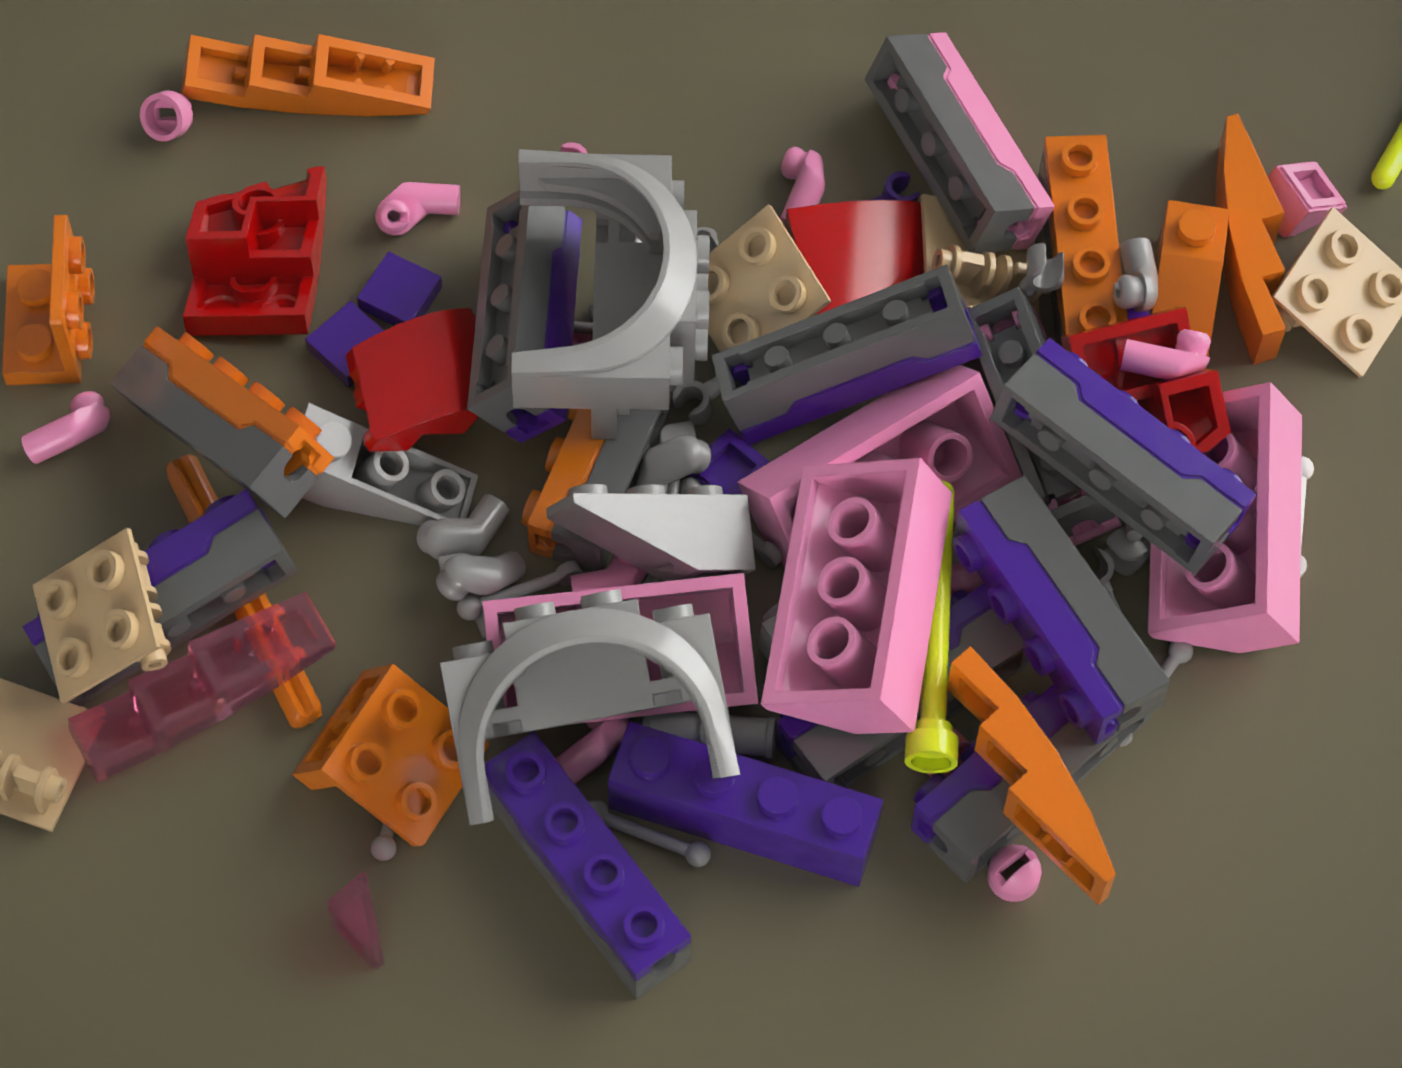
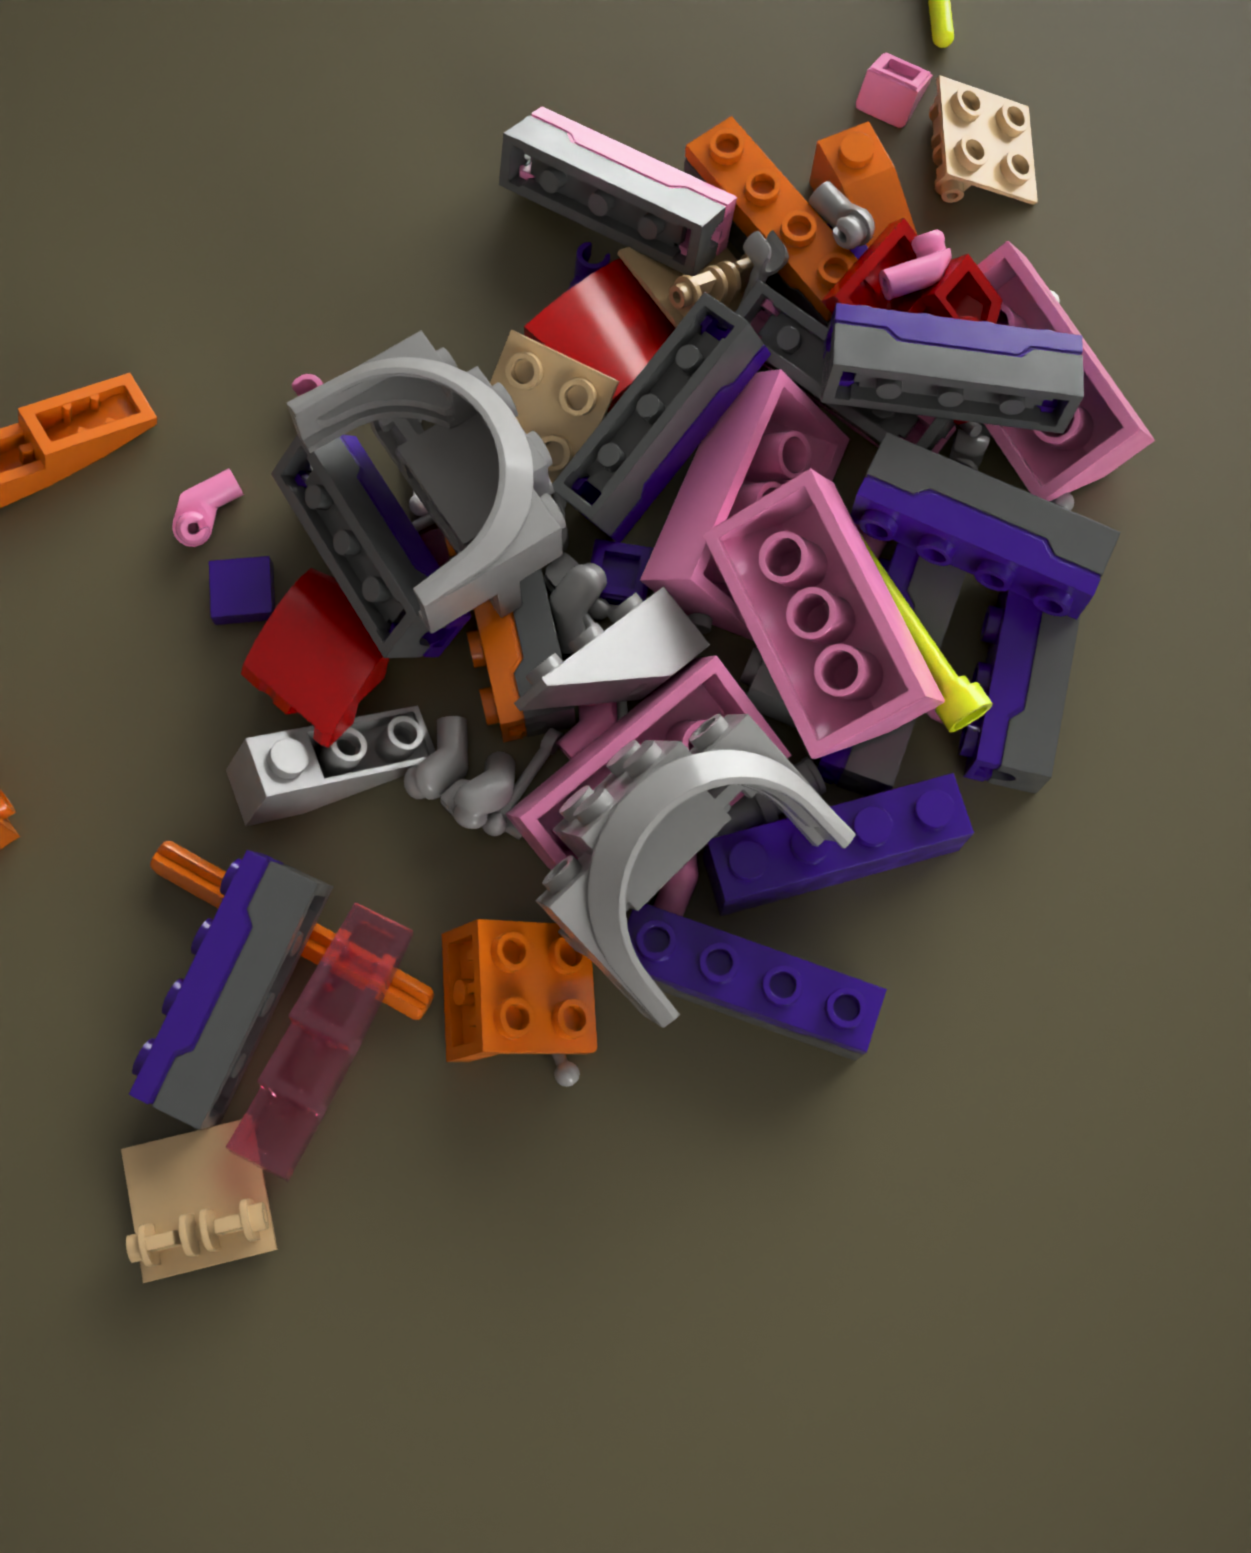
camera: 35 degrees left, 10 degrees up
(84, 422) = (50, 870): bright pink arm -> none
(101, 616) = (198, 1046): tan hinge -> none
(223, 420) = (180, 801): piece -> none
(256, 259) = (99, 636): red slope -> none
(337, 337) = (222, 660): dark purple tile -> none
(355, 919) = (596, 1153): clear pink slope -> none
(696, 853) = (819, 908): light grey hinge -> none
(809, 175) = (513, 293): bright pink arm -> none
(1020, 884) = (1085, 765): bright pink hinge -> none
(1042, 792) = (1081, 686): orange slope -> none
(1250, 258) = (852, 98): orange slope -> none

